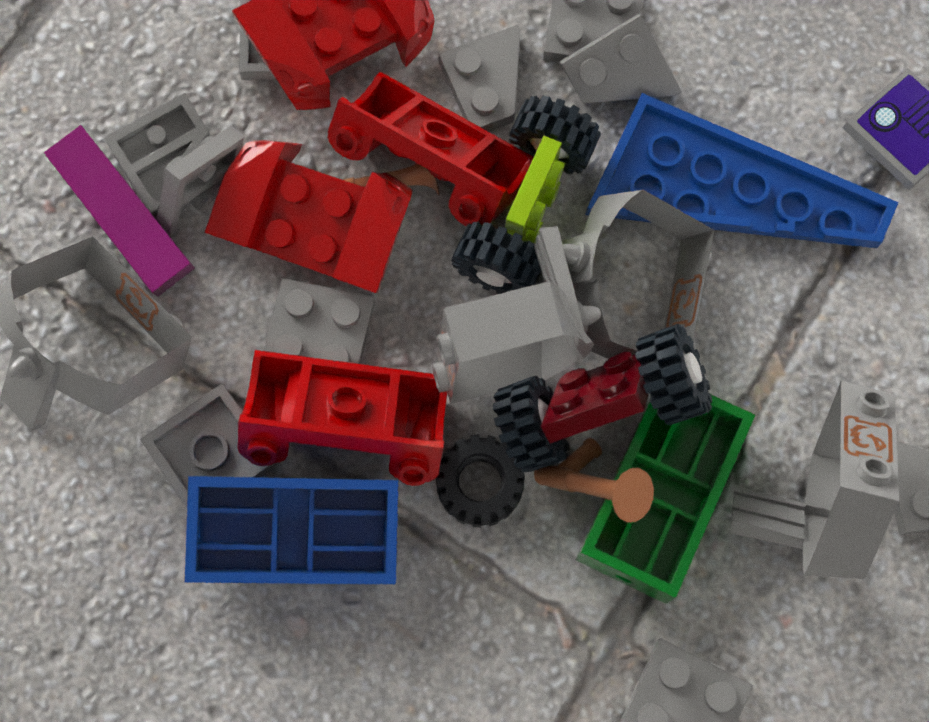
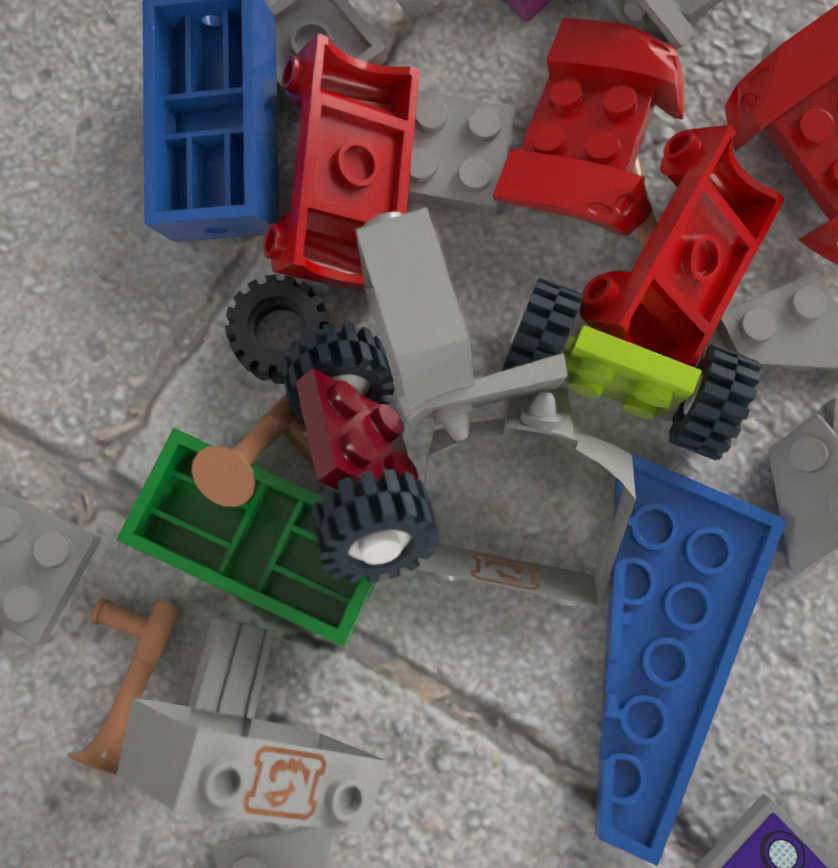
camera: 90 degrees right, 5 degrees up
(741, 587) = (153, 634): none -> nougat piece

